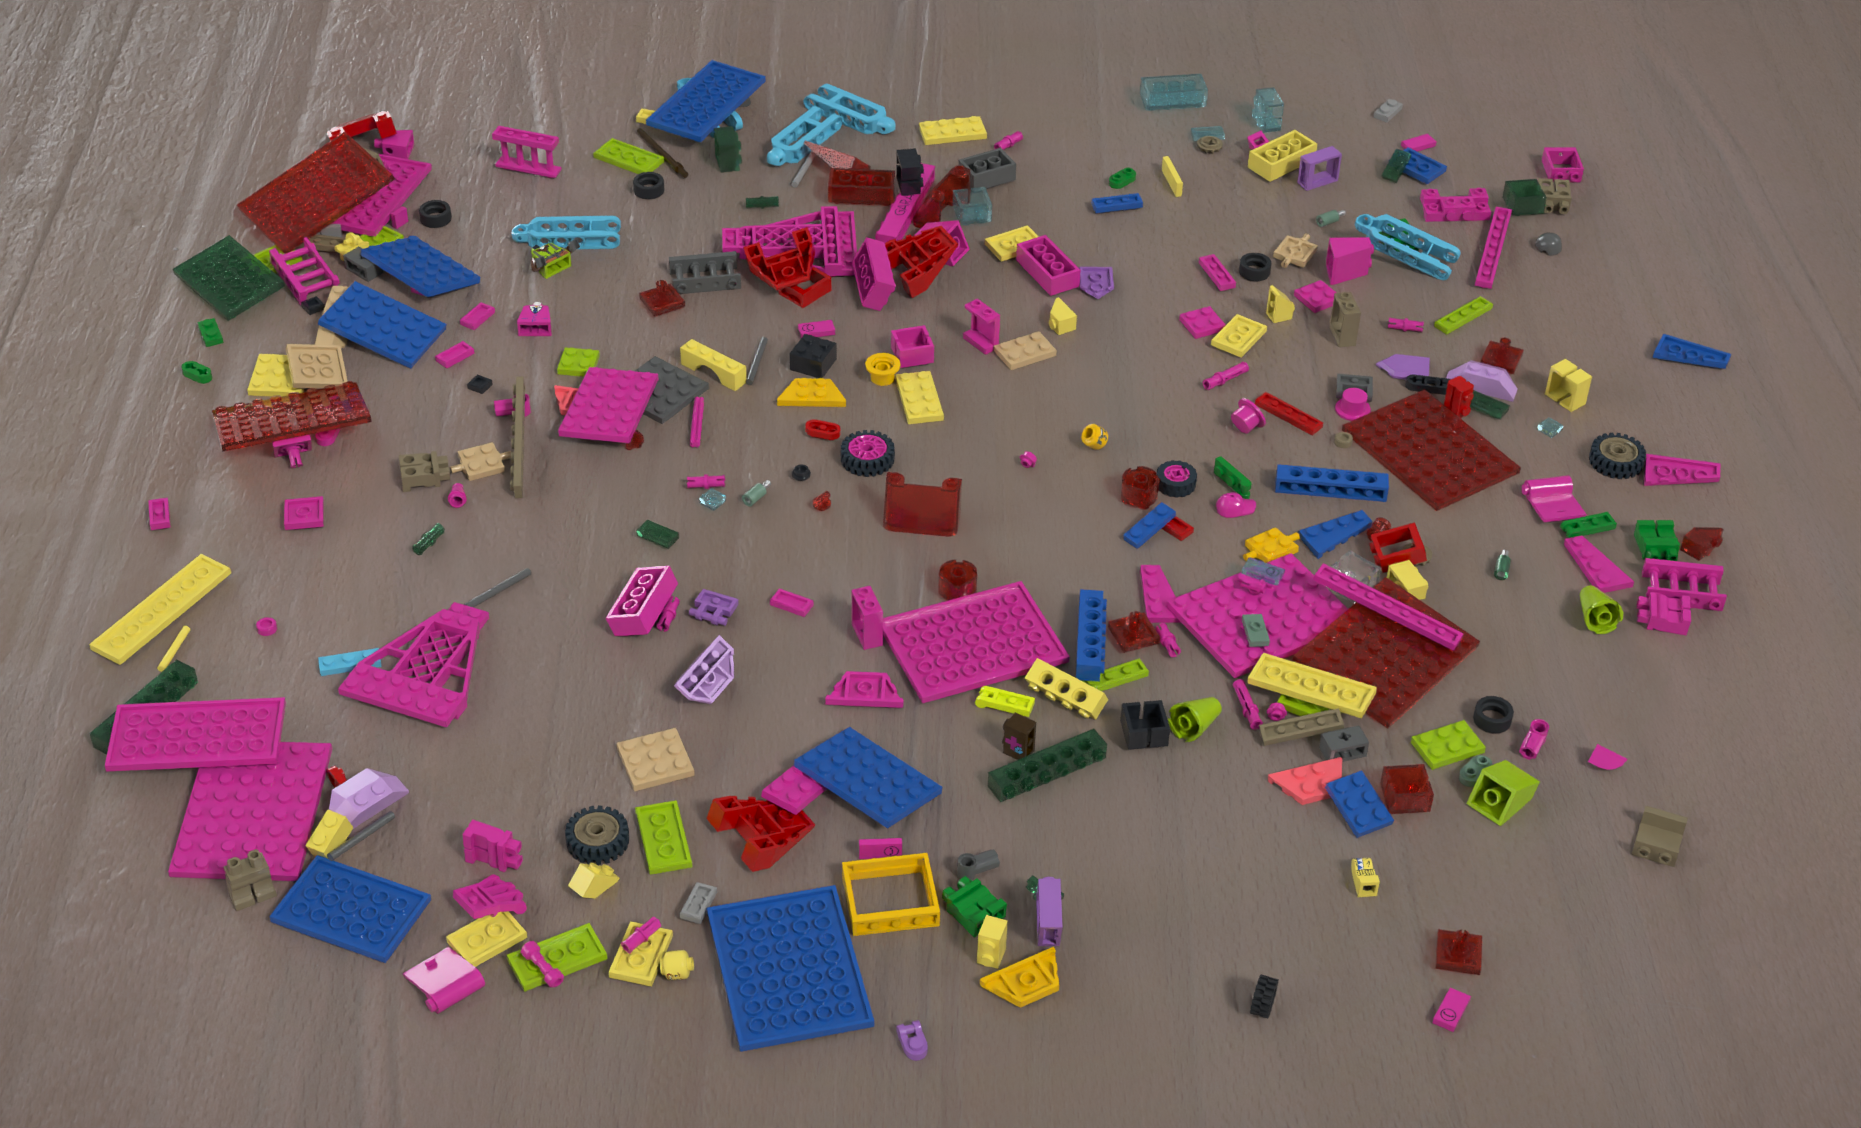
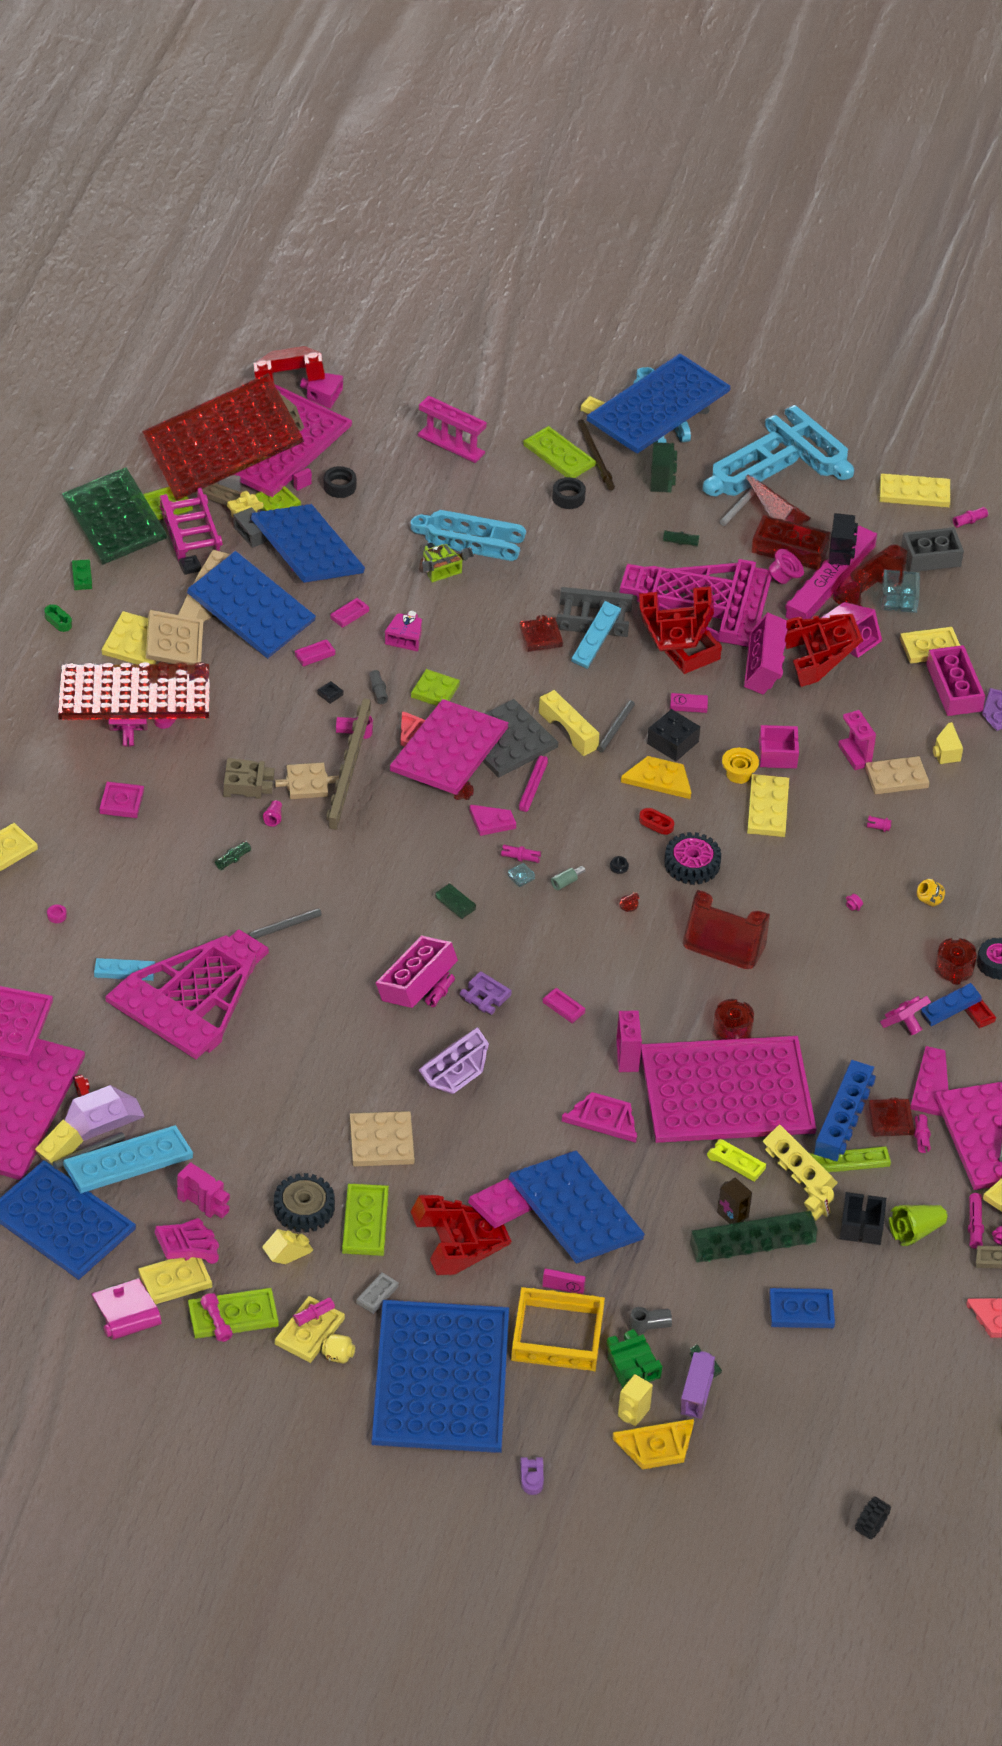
camera: 15 degrees right, 5 degrees up
(404, 834) = (128, 1159): none -> medium azure plate
(524, 370) = (378, 687): none -> dark grey pin
(668, 459) = (491, 820): none -> dark pink wing
(713, 289) = (596, 635): none -> medium azure plate
(864, 205) = (786, 567): none -> dark pink piece
(1025, 391) = (882, 824): none -> dark pink pin
(1099, 717) = (819, 1201): none -> light yellow hips
(1113, 538) = (905, 1013): none -> dark pink plate
(1117, 819) = (802, 1308): none -> blue plate

